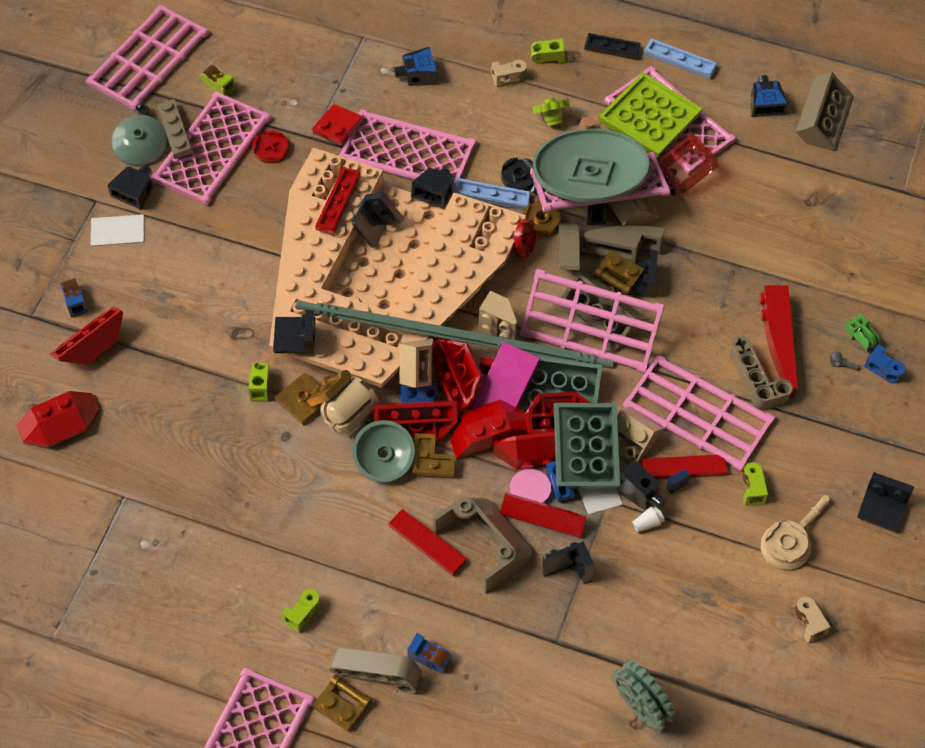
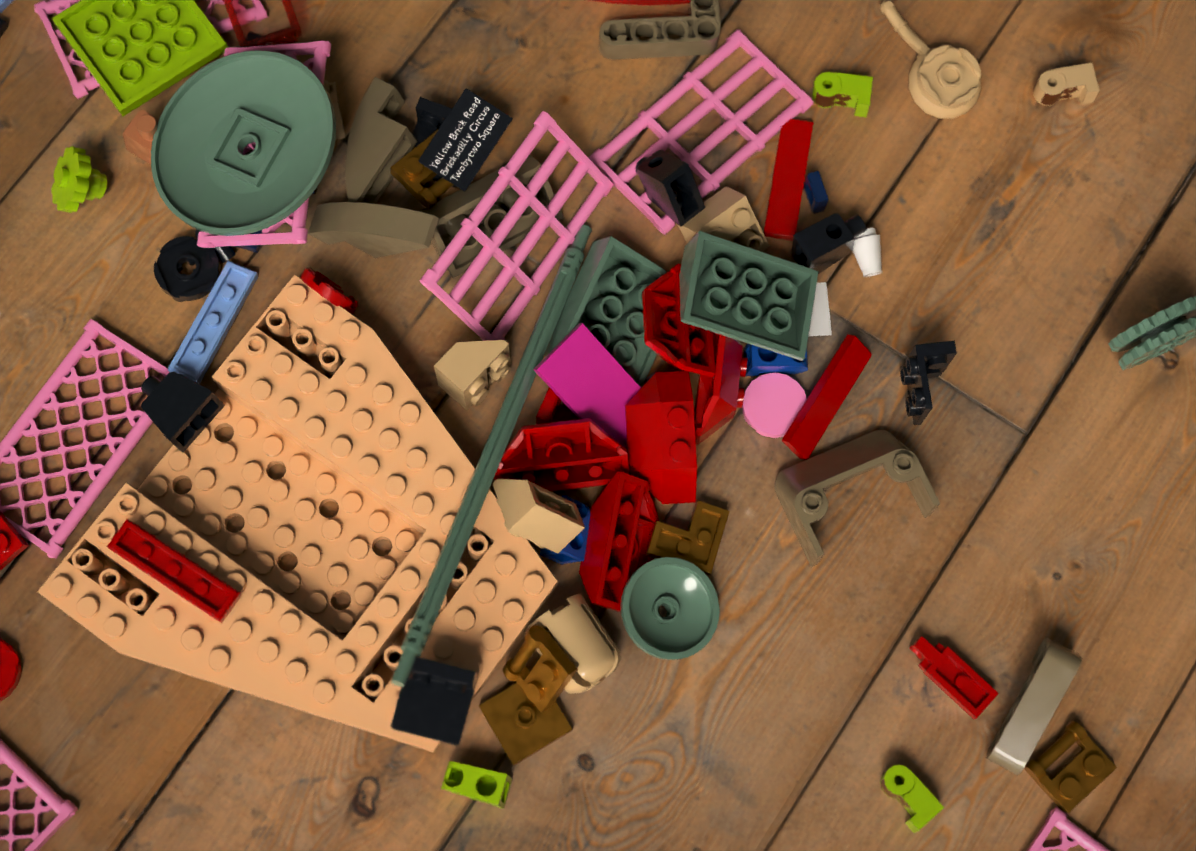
camera: 80 degrees left, 15 degrees up
(374, 215) = (212, 519): black bracket -> none
(382, 622) = (954, 677): none -> red hinge
(427, 542) = (830, 580): red tile -> none
(428, 653) = (1019, 620): blue leg -> none
(543, 227) = (278, 274): pearl gold plate -> none
(639, 279) = (465, 140): none -> black sticker
(649, 385) = (670, 186): none -> black torso

